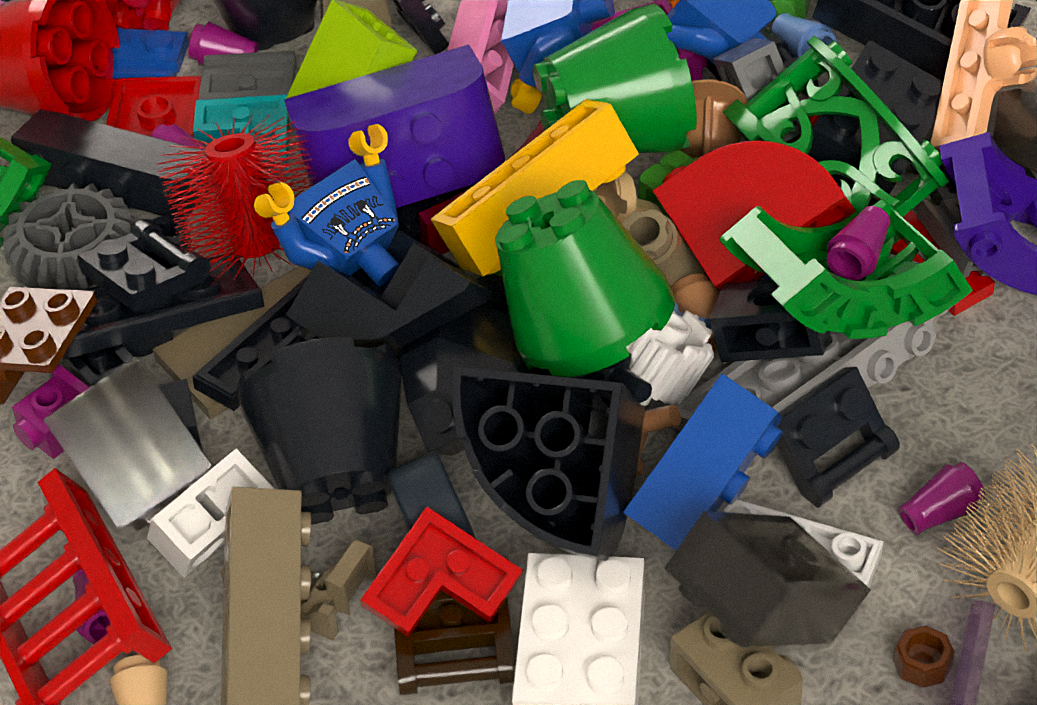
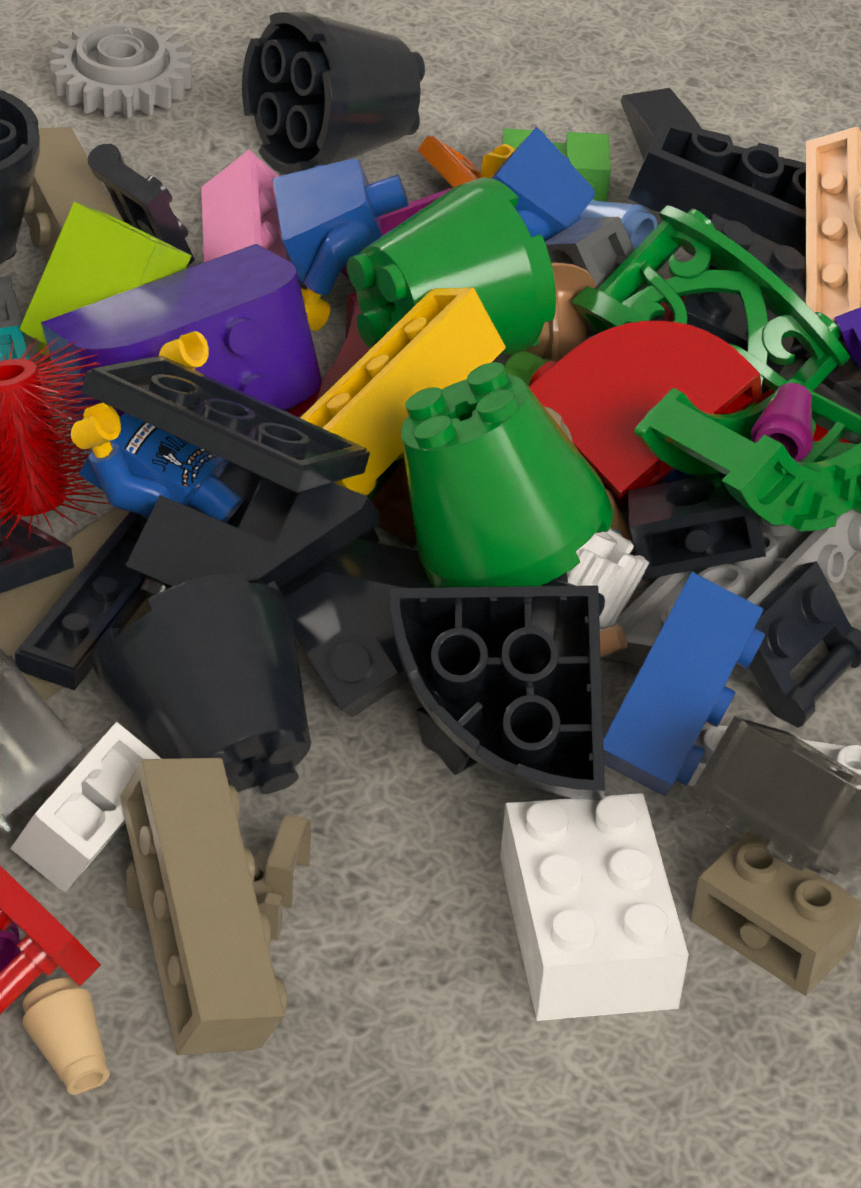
camera: 20 degrees left, 5 degrees down
(376, 207) = (227, 422): none -> black tile
(426, 484) = (363, 768): black wheel -> none
(438, 559) = (406, 822): red plate -> none
(450, 628) = (428, 898): dark brown plate -> none

